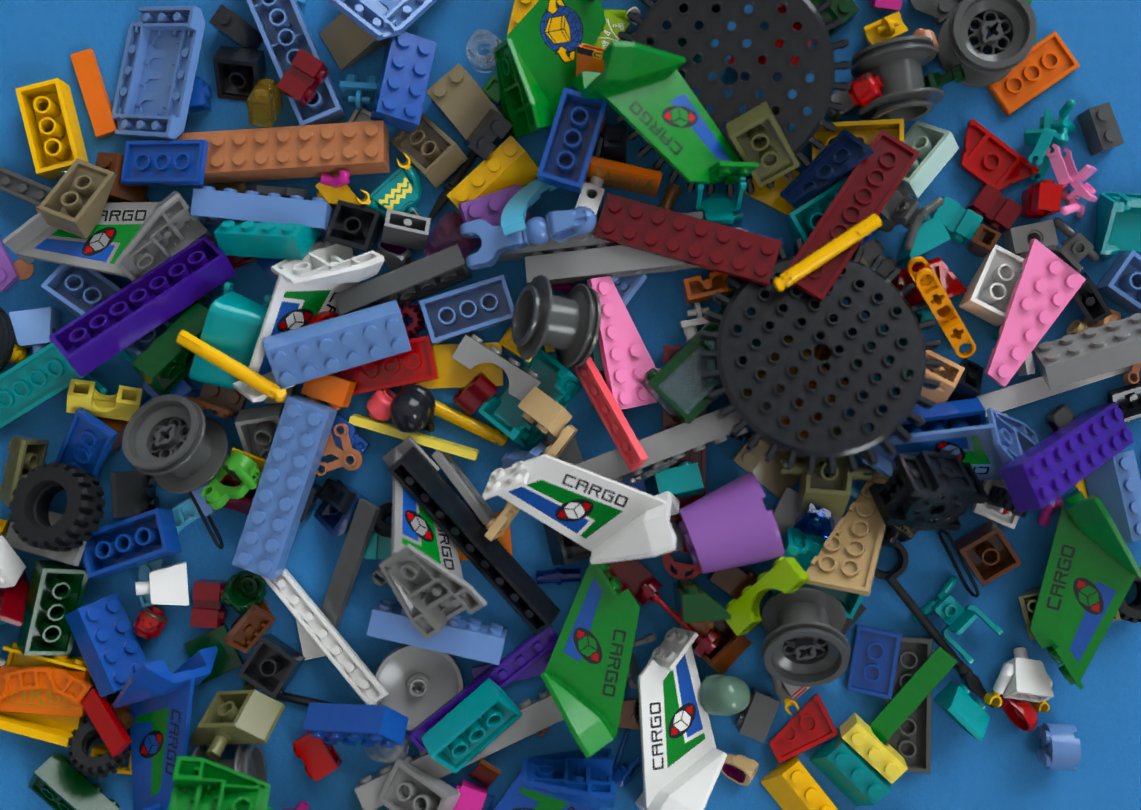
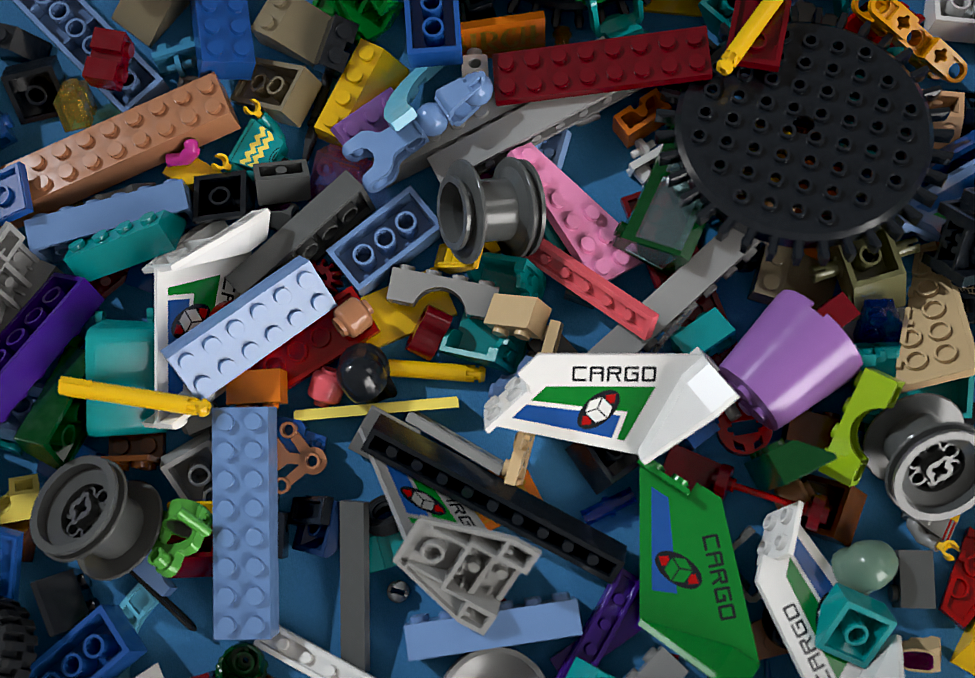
camera: 15 degrees left, 10 degrees down
(420, 363) = (352, 317): none -> nougat head
(695, 734) = (853, 625): none -> teal slope
(782, 503) = (840, 309): none -> dark red brick

